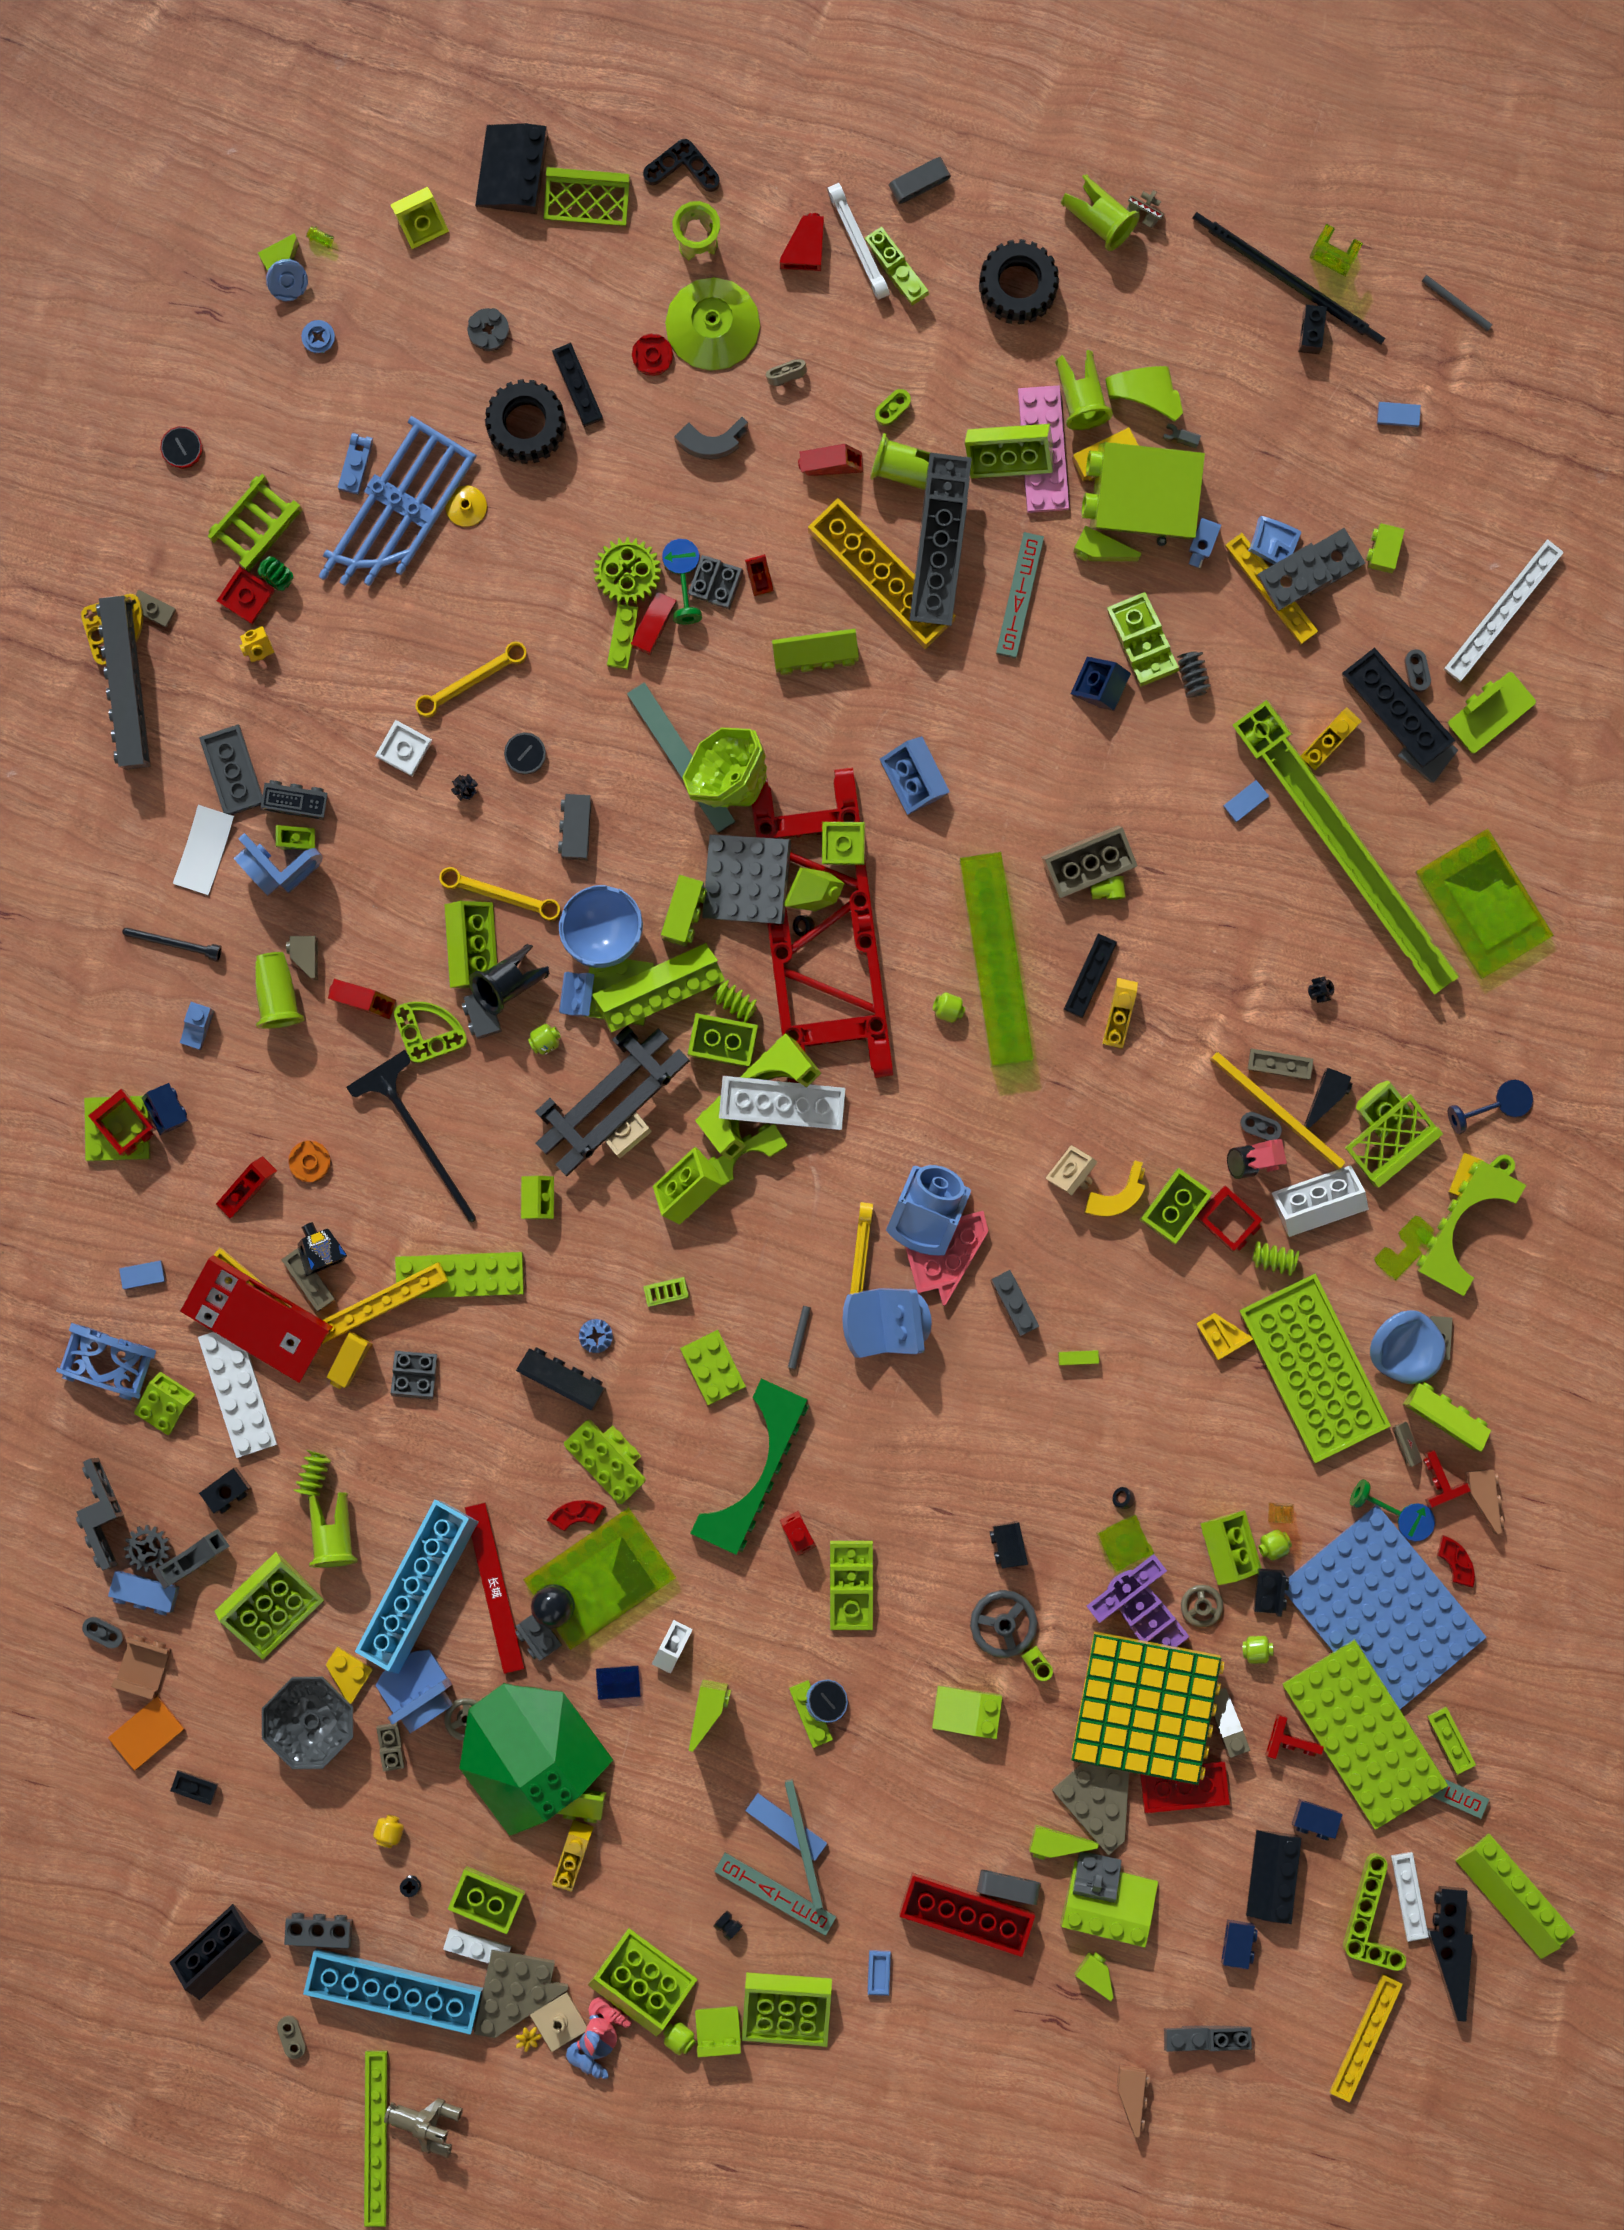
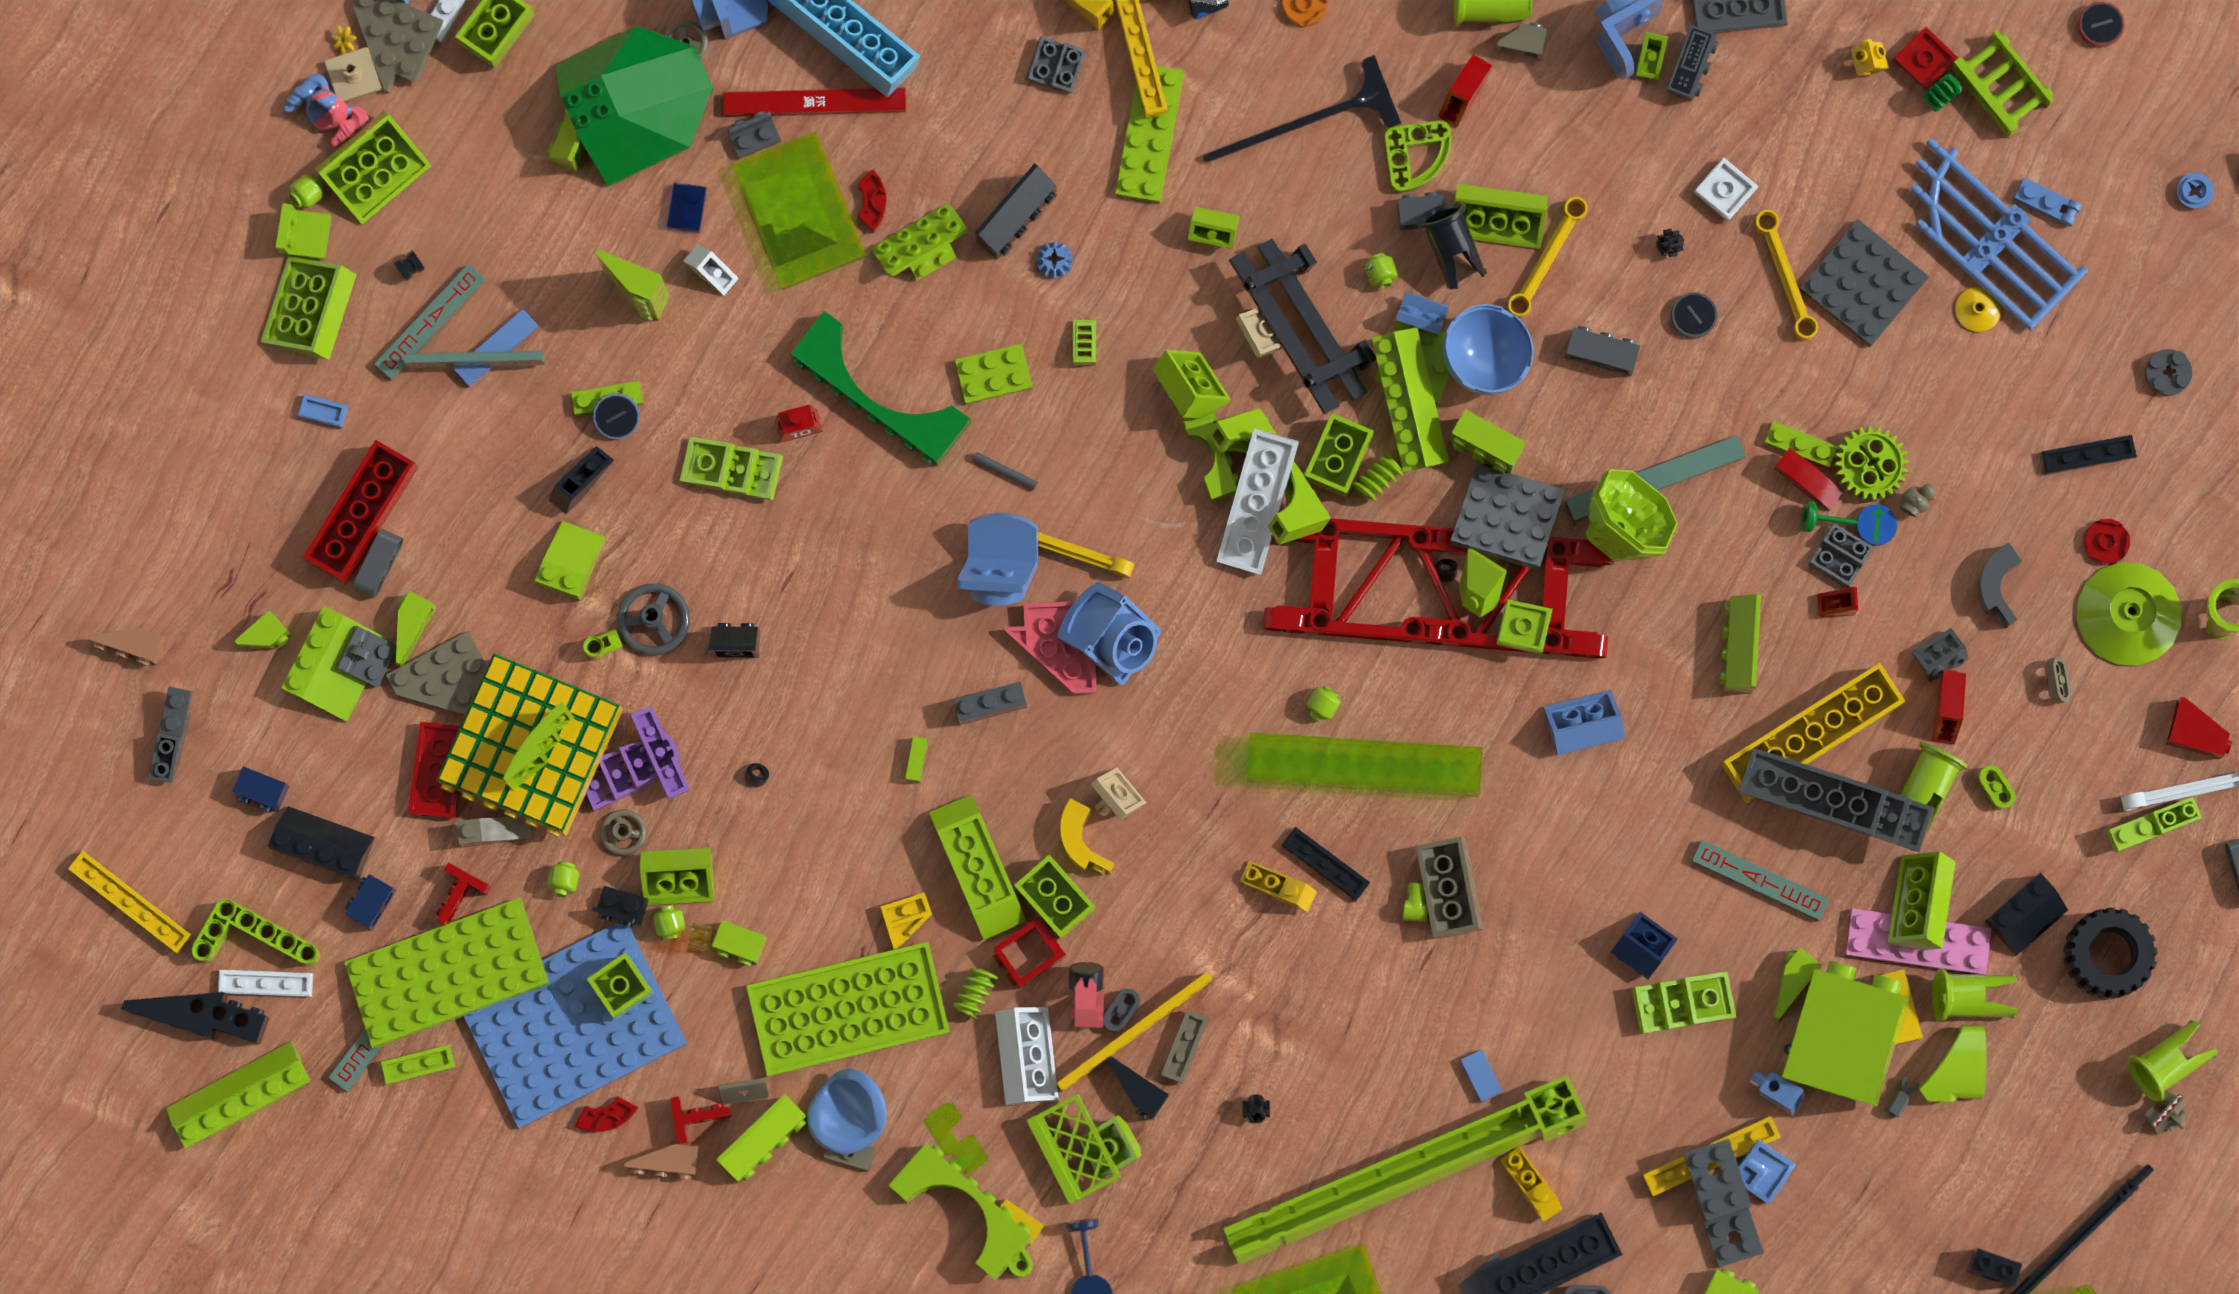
camera: 105 degrees right, 5 degrees down
(463, 610) = (1864, 283): none -> dark grey plate
(516, 396) = (2078, 367): black tyre -> none
(552, 1606) = (781, 153): black tile -> none
(572, 1855) = (520, 123): yellow slope -> none
(654, 524) = (1917, 503): none -> dark tan animal
(785, 477) = (1941, 654): none -> dark grey bracket
(891, 1720) = (580, 479): none -> black slope
(998, 361) = (2027, 914): none -> black slope
(1124, 1542) = (709, 764): clear neon green panel -> none
(1158, 1700) = (531, 753): none -> lime slope
(1162, 1282) = (978, 867): none -> lime slope
(1194, 674) = (1633, 1048): dark grey piece -> none
(1278, 1478) = (739, 943): none -> lime brick
(1345, 1574) = (620, 986): none -> lime brick
(1414, 1521) = (659, 1079): piece -> none

